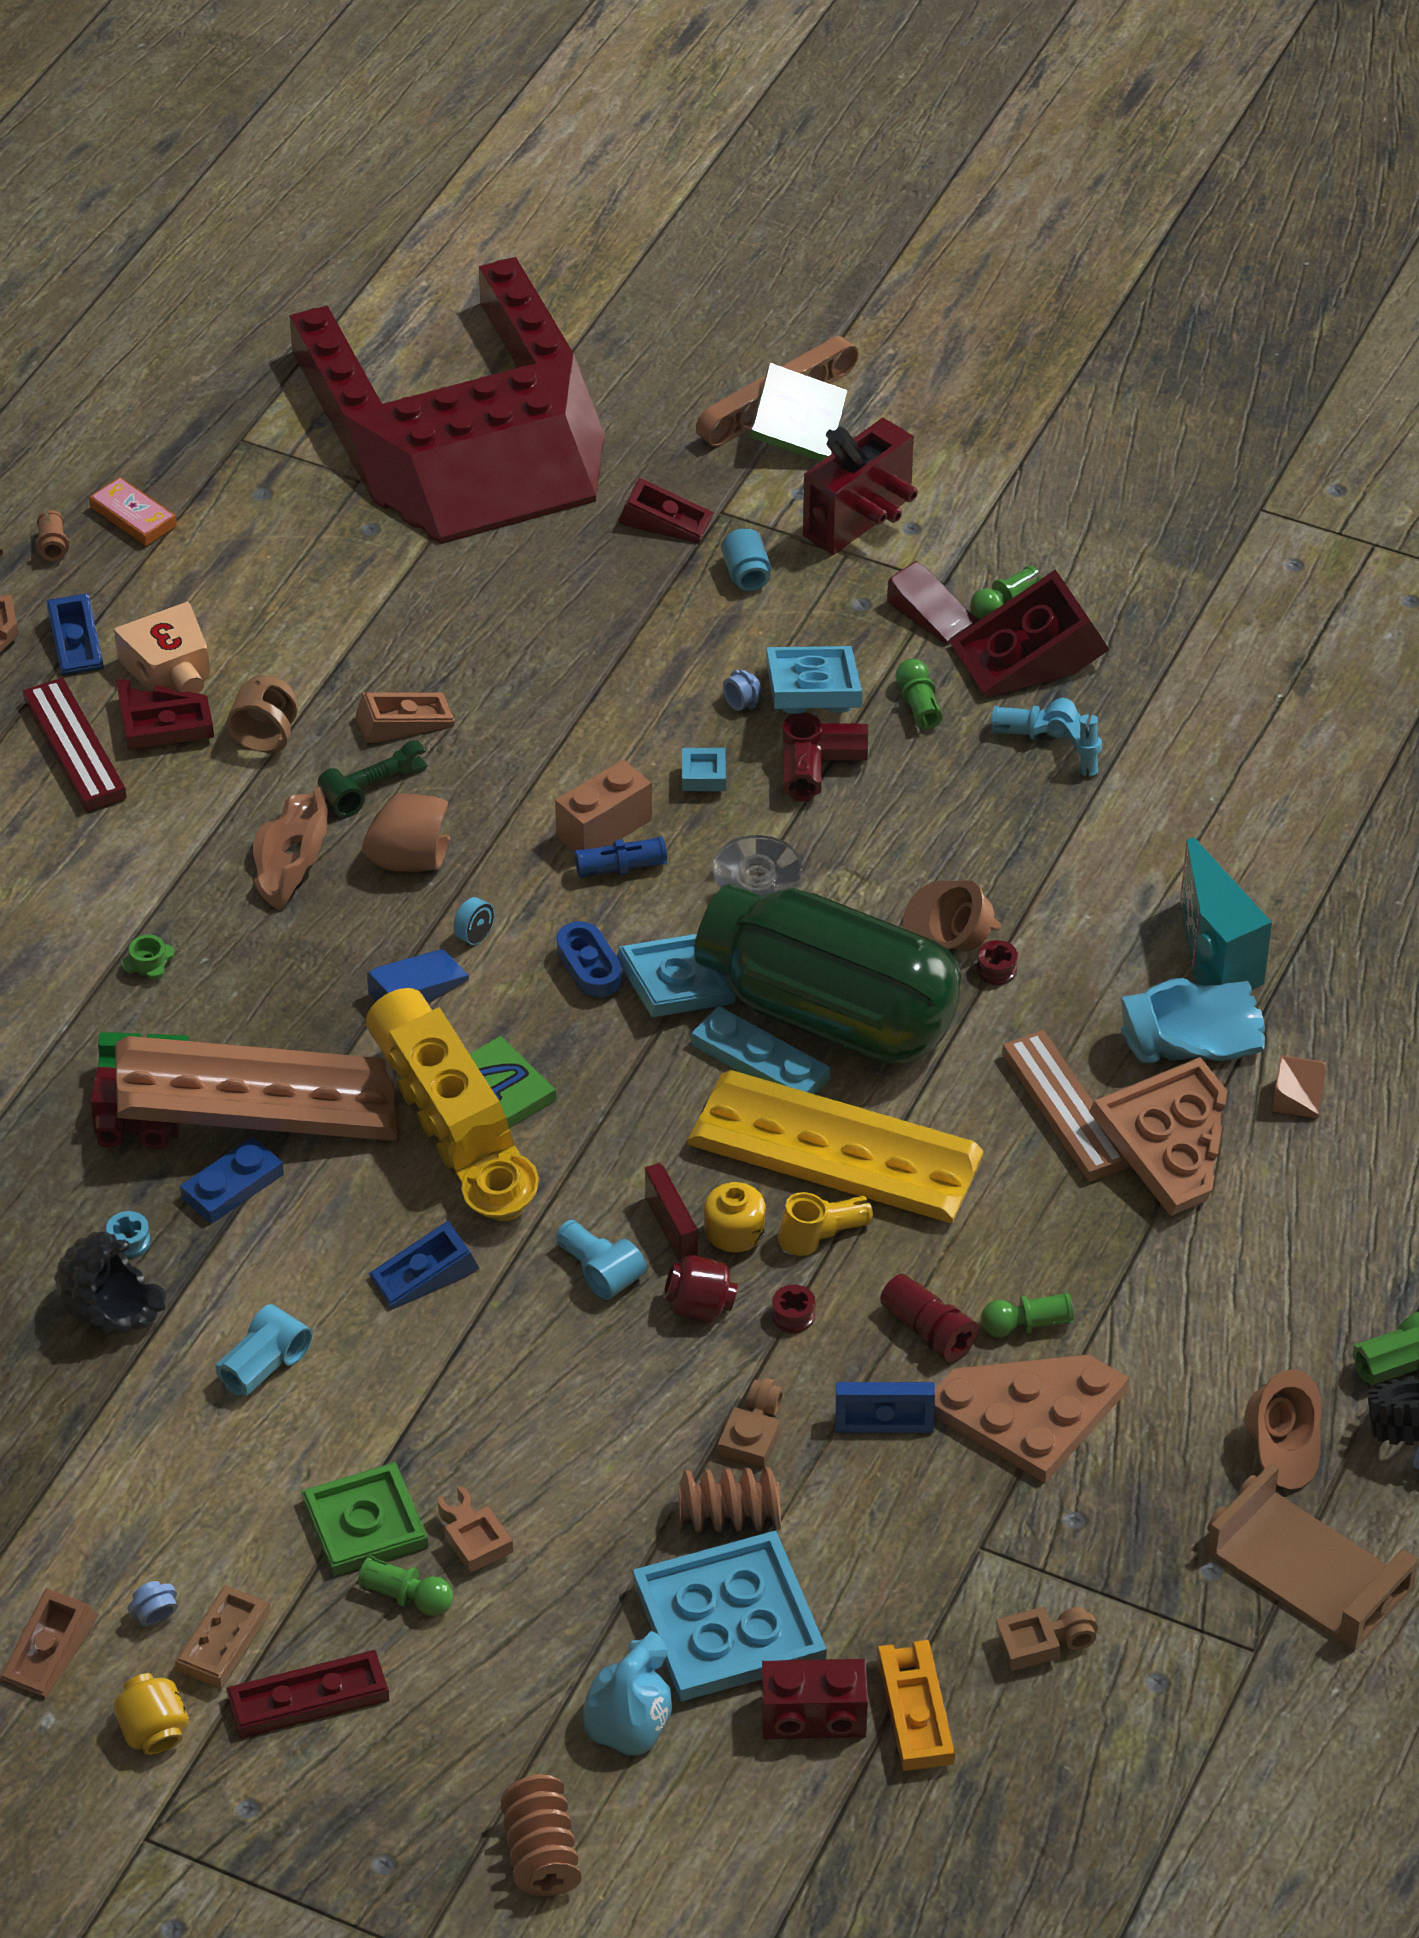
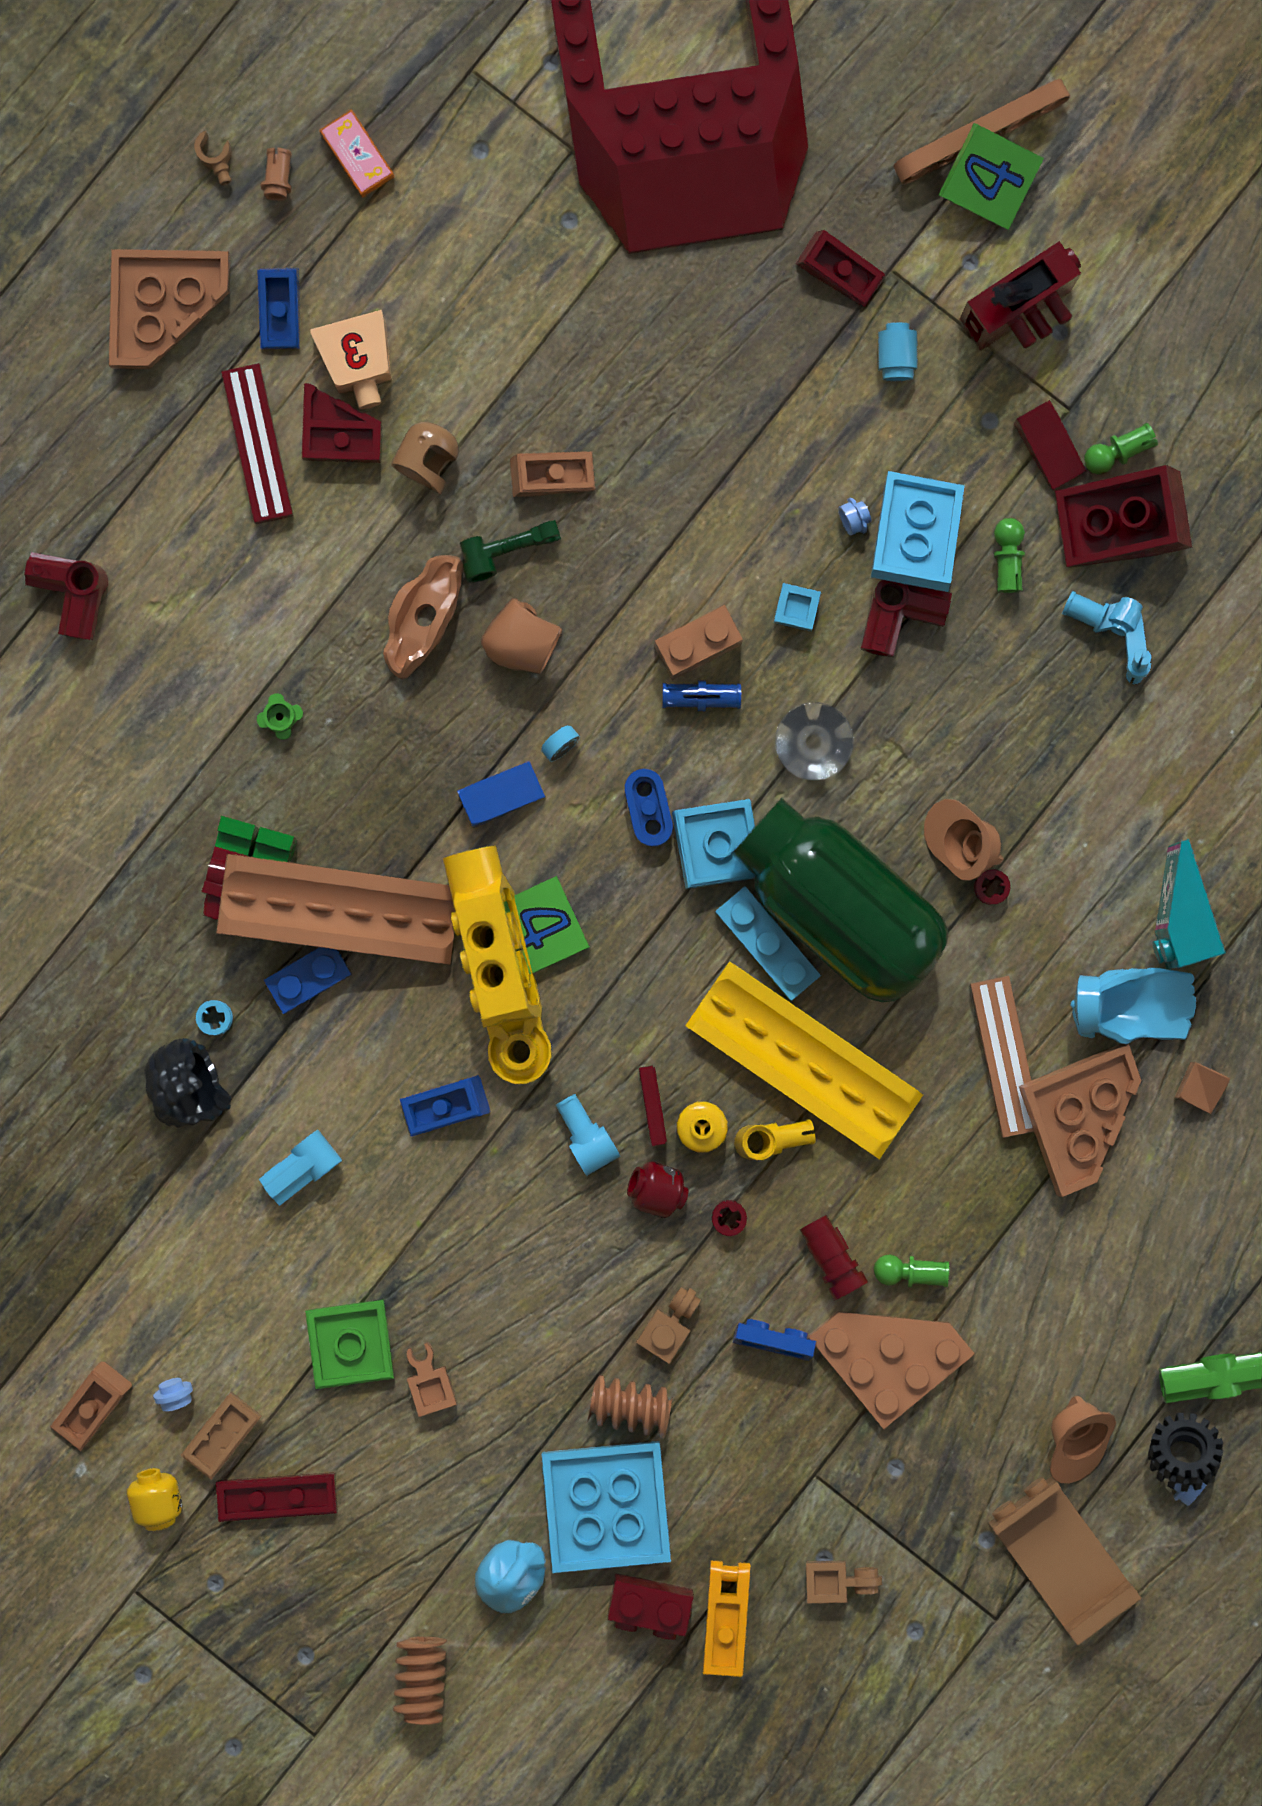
camera: 15 degrees right, 40 degrees up
(431, 1594) = (385, 1434): bright green pin -> none

